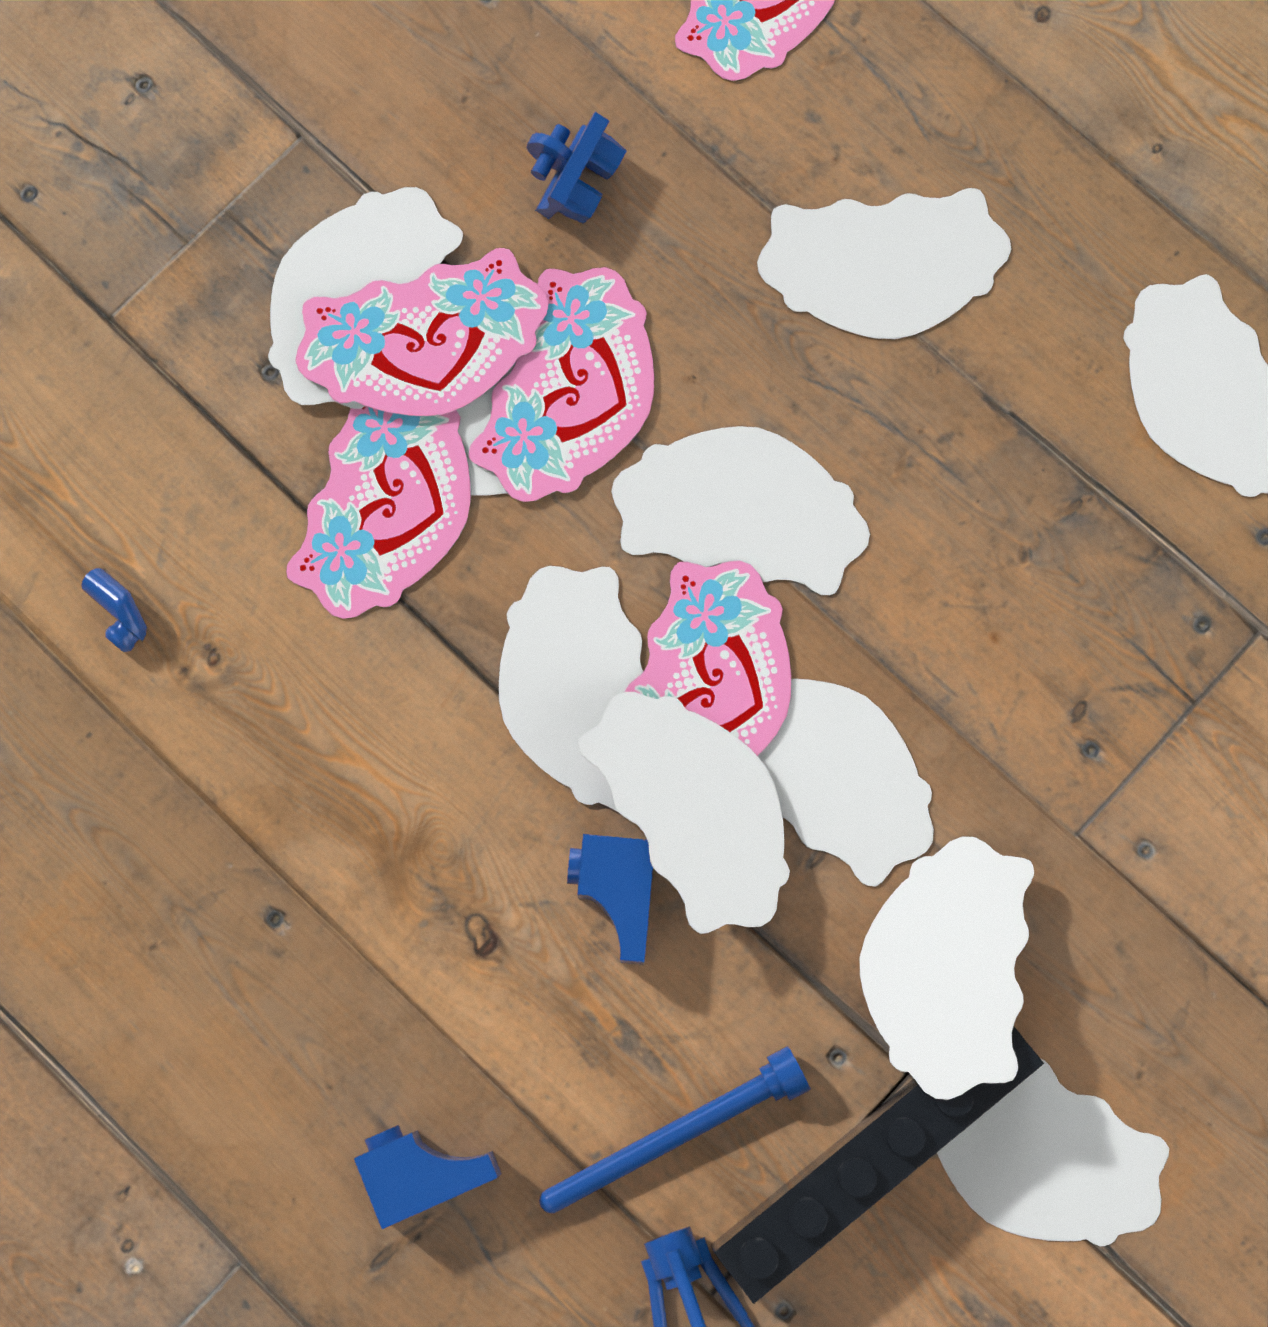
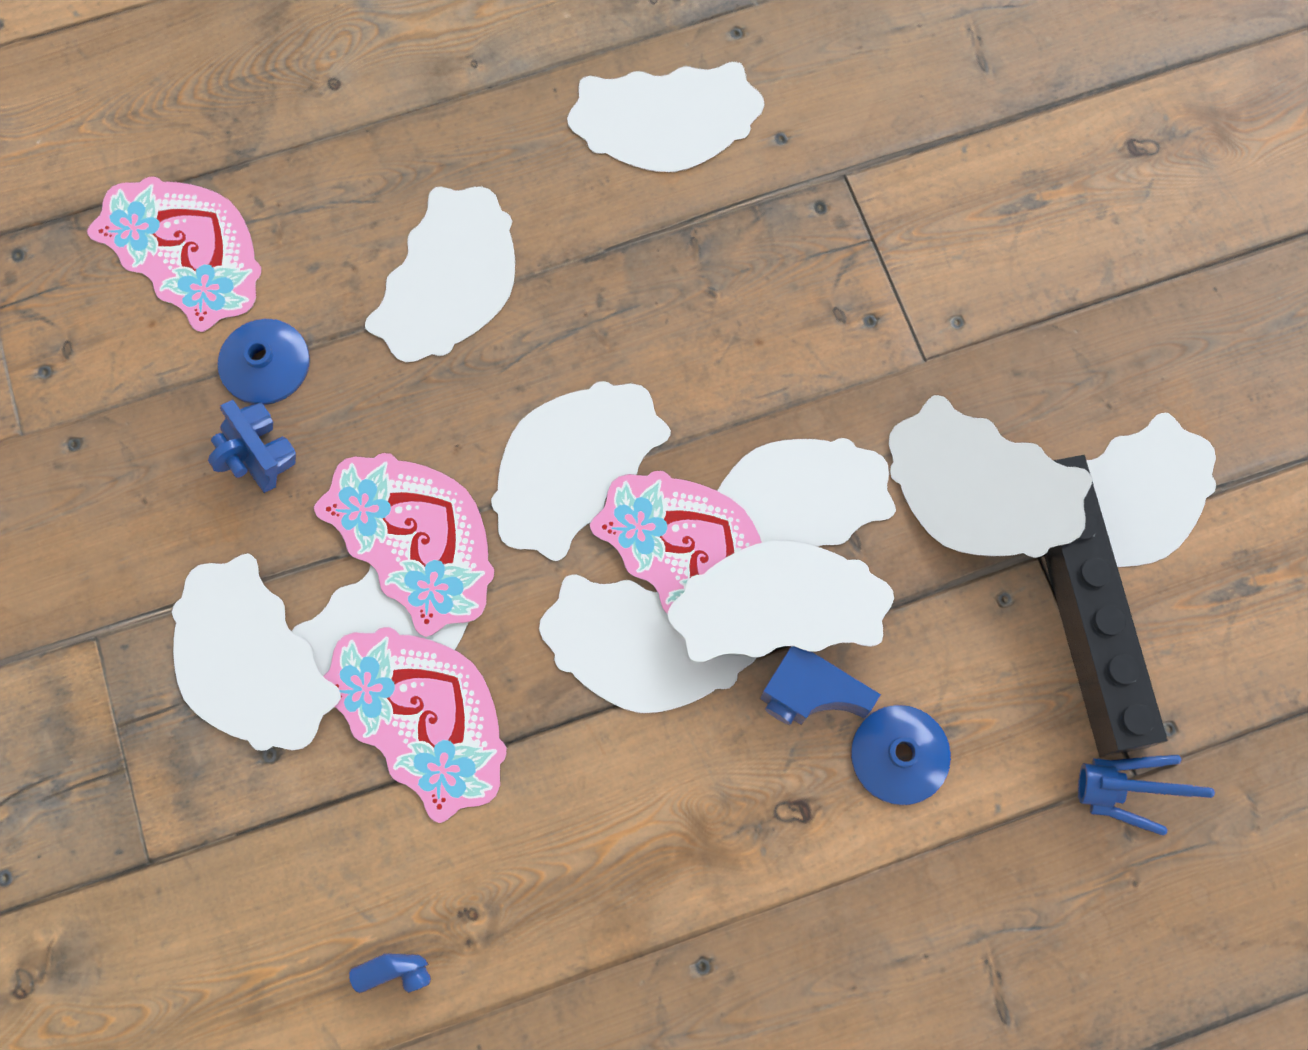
camera: 60 degrees left, 5 degrees down
(410, 1177) = (960, 951): blue arch -> none
(426, 340) = (316, 624): sticker -> none
(606, 1054) = (881, 770): none -> blue dish
(678, 149) = (275, 374): none -> blue dish
(777, 1079) = (1005, 646): blue piece -> none

